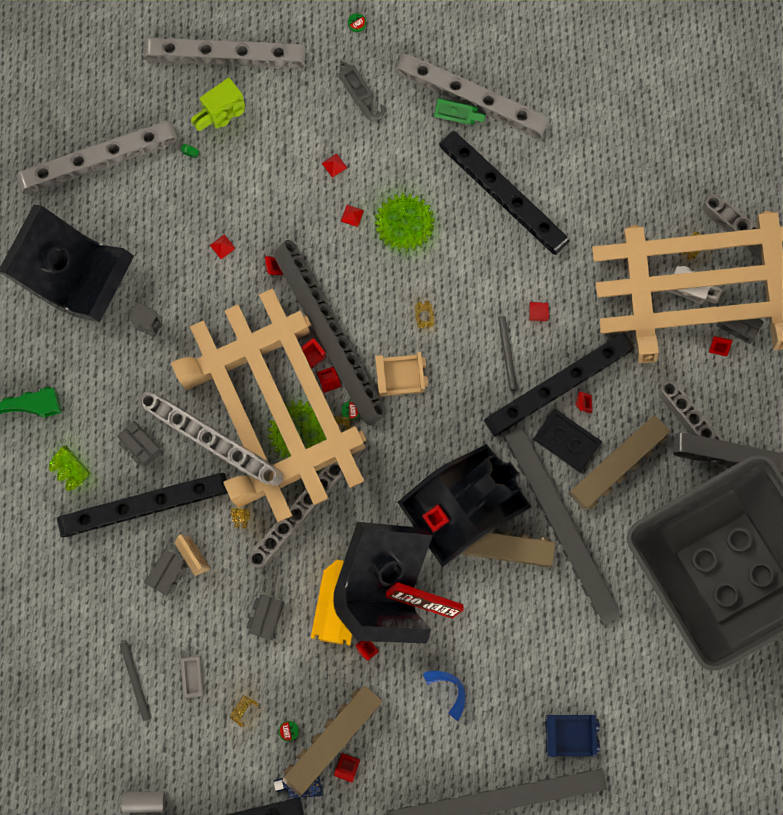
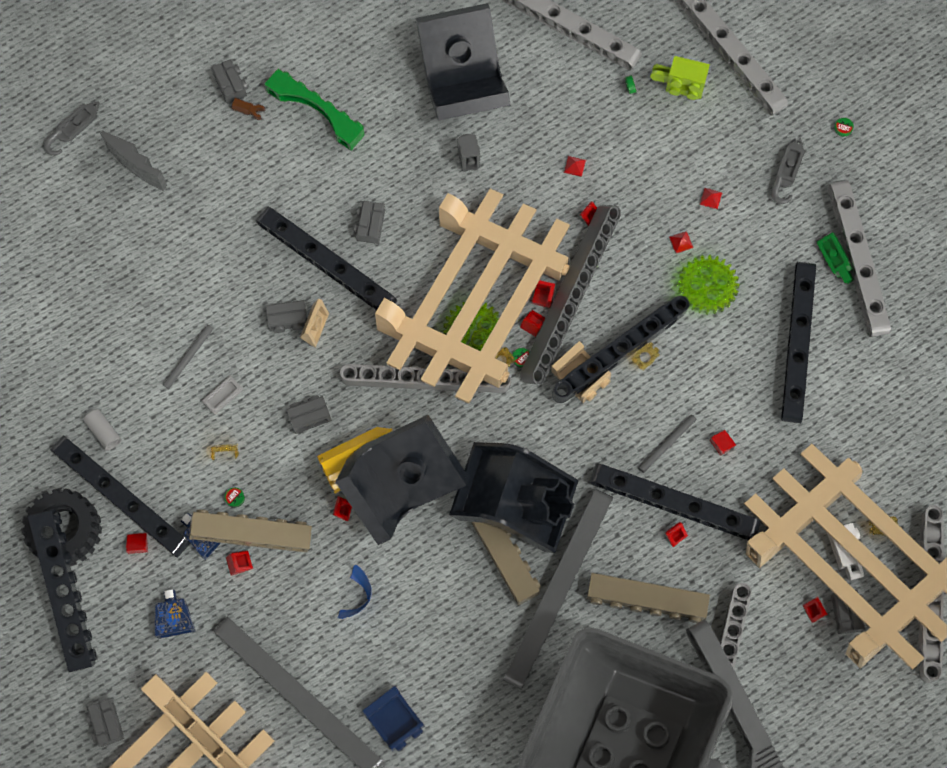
camera: 55 degrees right, 5 degrees down
(69, 467) = (312, 187): clear neon green plate -> none
(220, 443) = (413, 268): light grey beam -> none
(240, 516) = (373, 335): clear yellow piece -> none
(406, 340) = (610, 356): none -> black beam
(424, 600) = (412, 521): tile -> none
(436, 518) = (482, 479): red slope -> none
(567, 440) = (633, 543): black tile -> none

